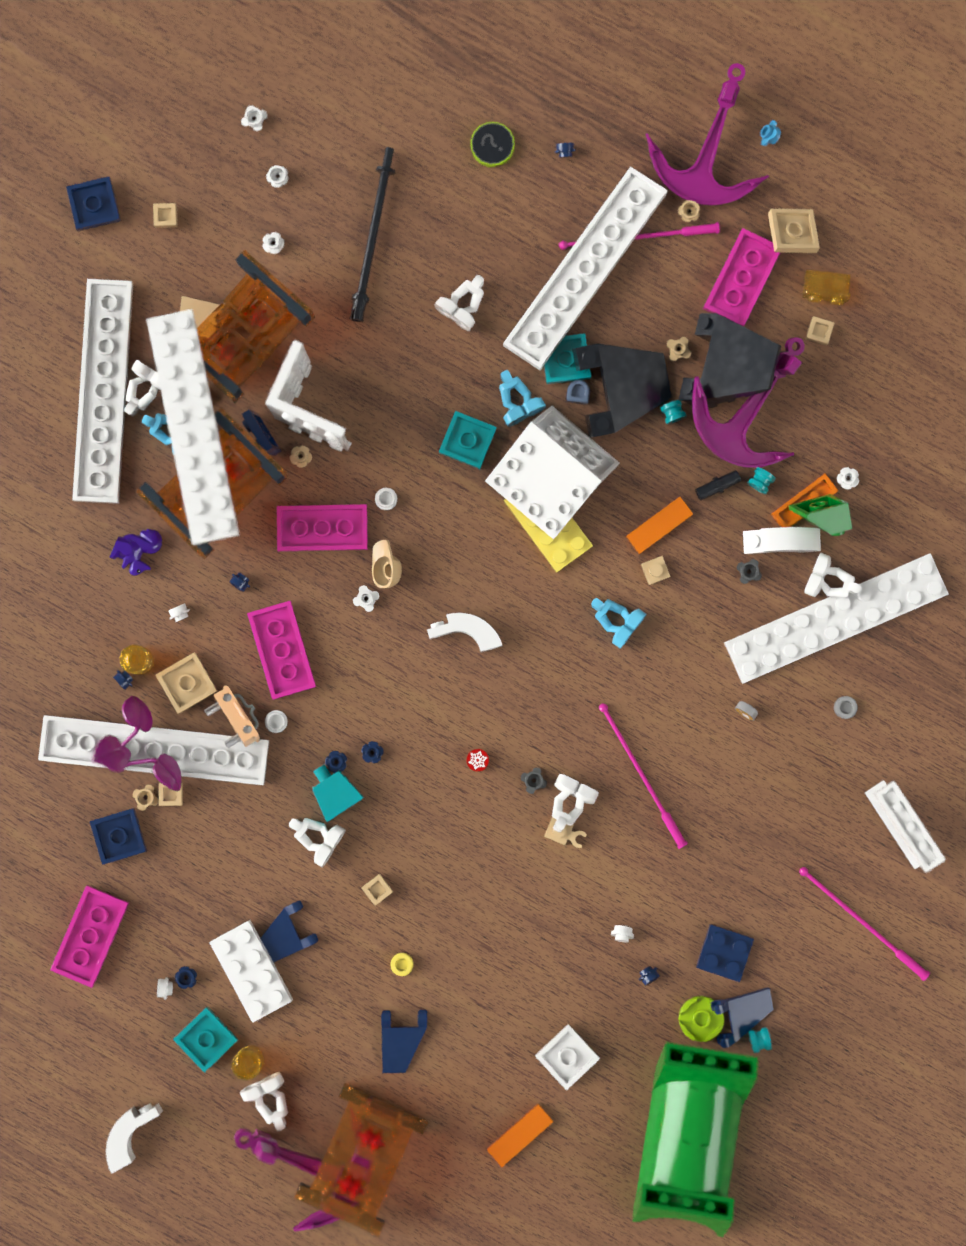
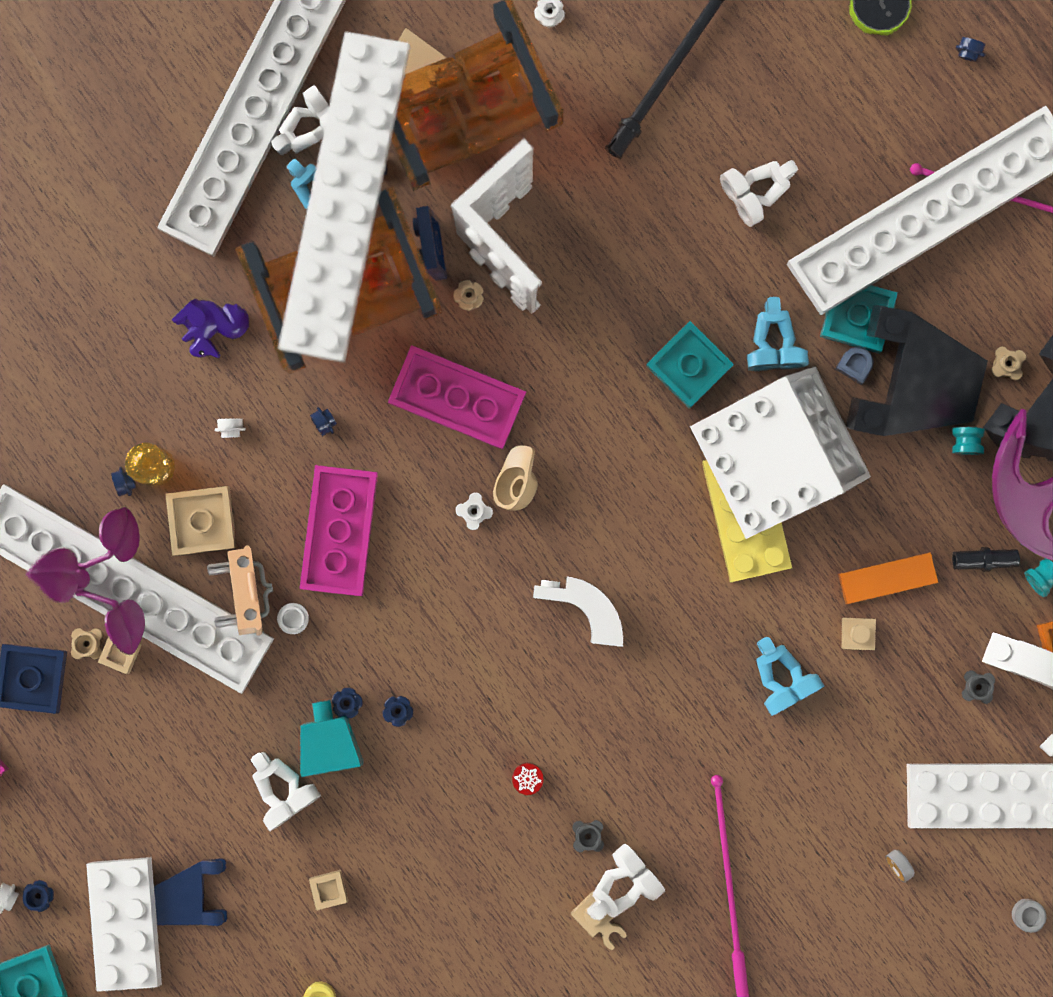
camera: 25 degrees right, 0 degrees up
(386, 498) = (553, 395): white plate -> none

